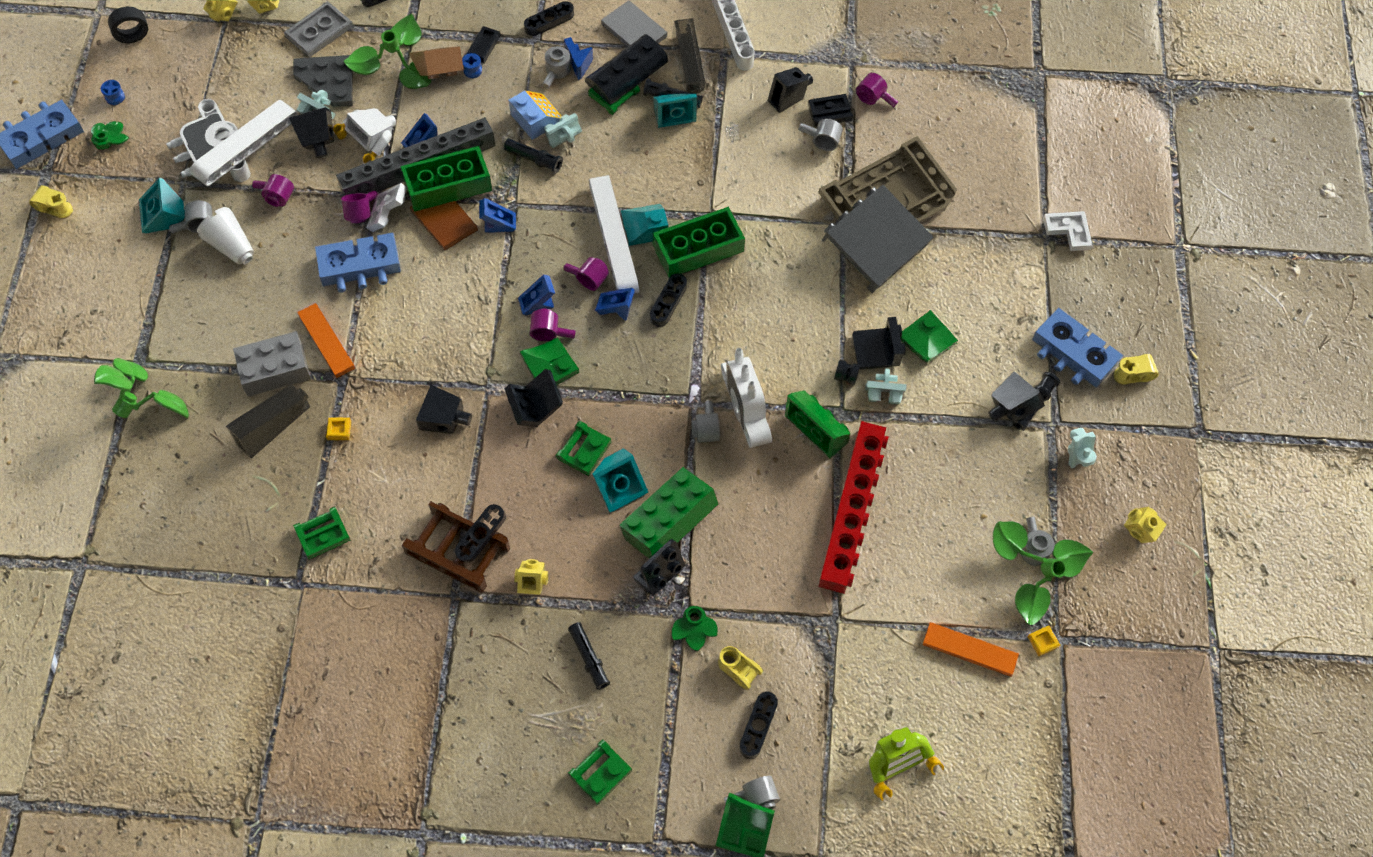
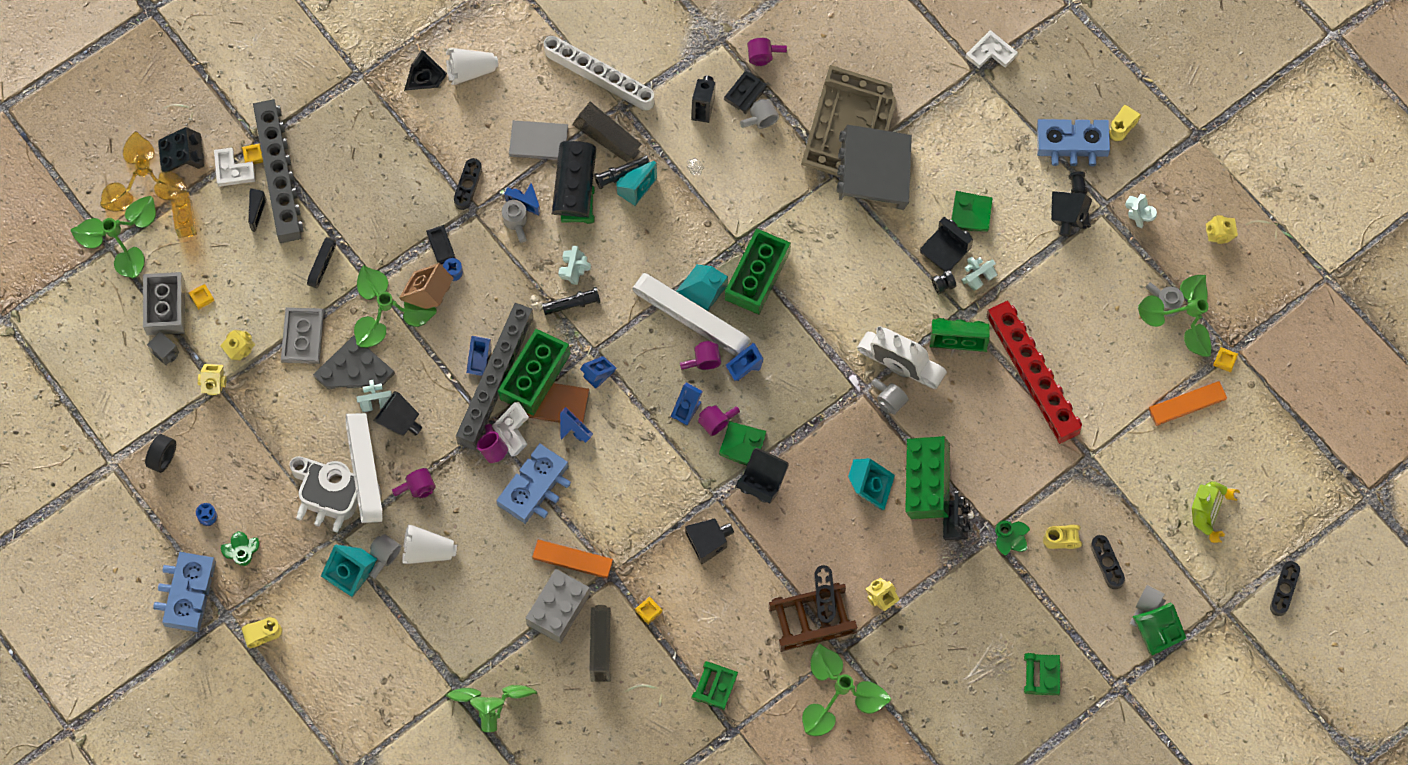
camera: 40 degrees left, 5 degrees up
(369, 129) = (436, 381): white torso -> none
(432, 237) = (570, 422): none -> blue slope
(432, 657) = (828, 664): none -> bright green plant
(533, 112) = (539, 269): light blue slope -> none
(589, 452) = (830, 480): green plate -> none
(592, 663) = (973, 614): black pin -> none
(668, 308) = (775, 323): black beam -> none

